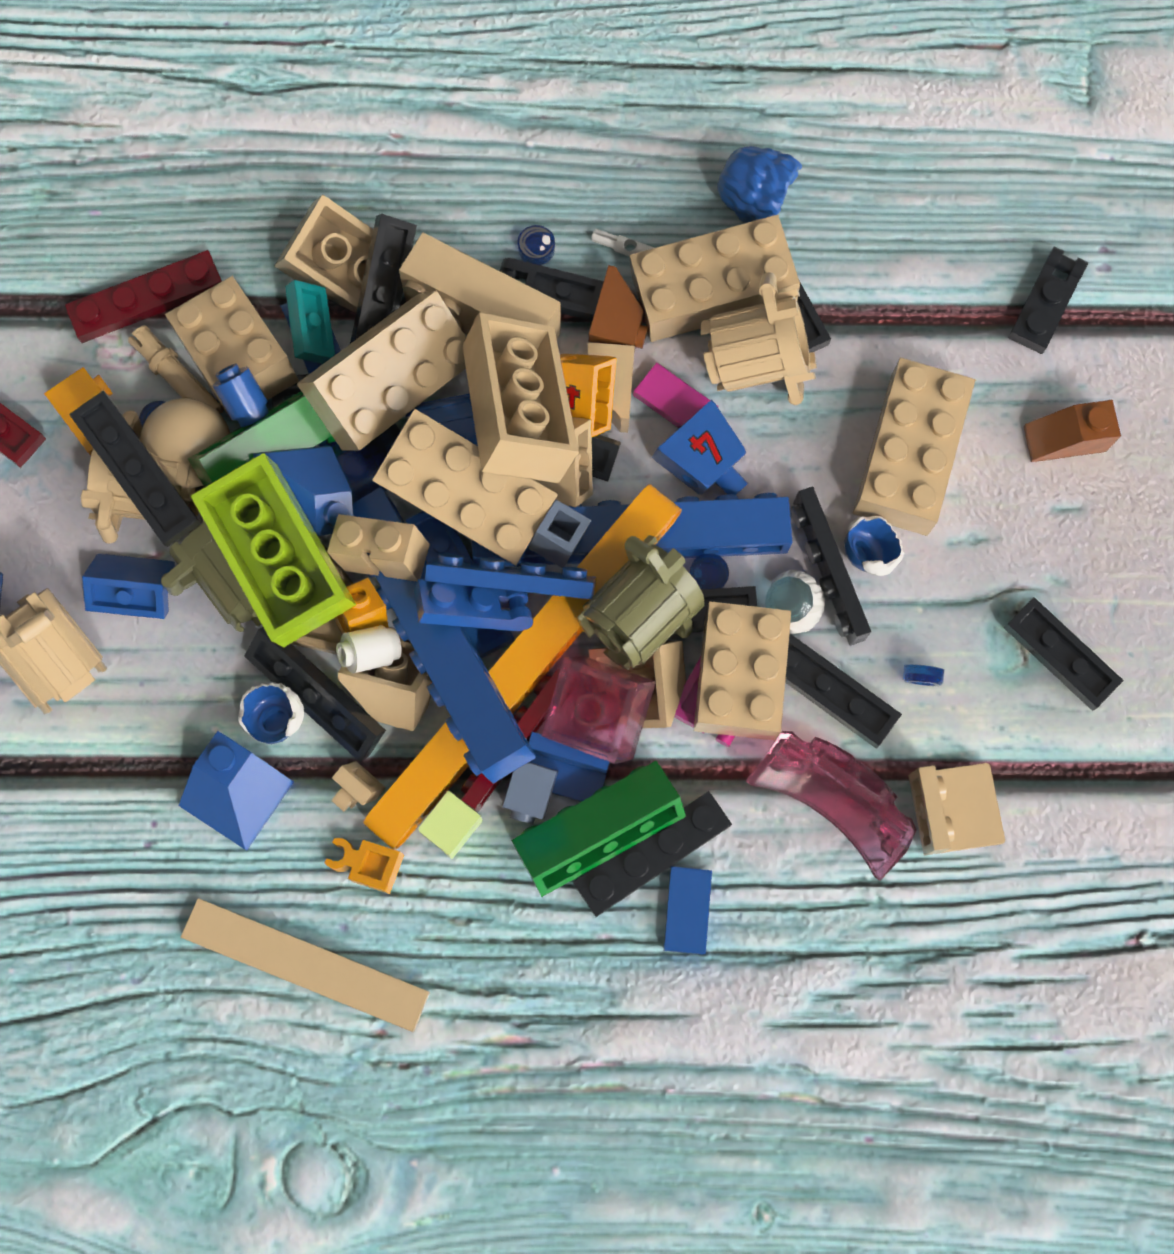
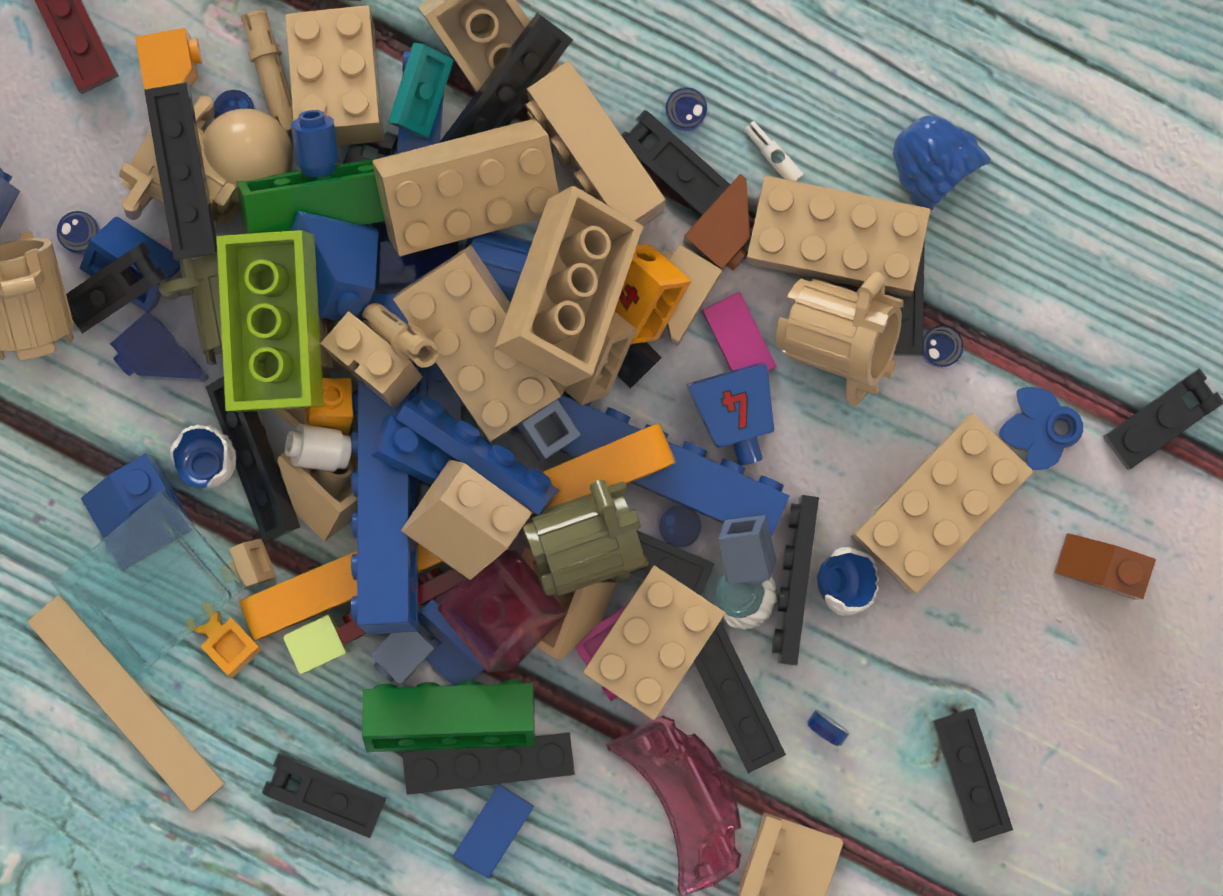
camera: 30 degrees right, 10 degrees up
(67, 581) = (76, 230): none -> clear blue tile
(122, 605) = (113, 287): none -> black plate
(187, 647) = (155, 353): none -> clear blue slope
(274, 846) = (148, 584): none -> clear light blue piece
(399, 507) = (406, 339): none -> tan pin
(525, 955) = (325, 796): none -> black plate
(530, 635) = (465, 519): none -> tan slope
(779, 555) = (747, 550): none -> sand blue brick
(843, 327) = (942, 346): none -> clear blue tile
(951, 350) = (1035, 430): none -> blue plate

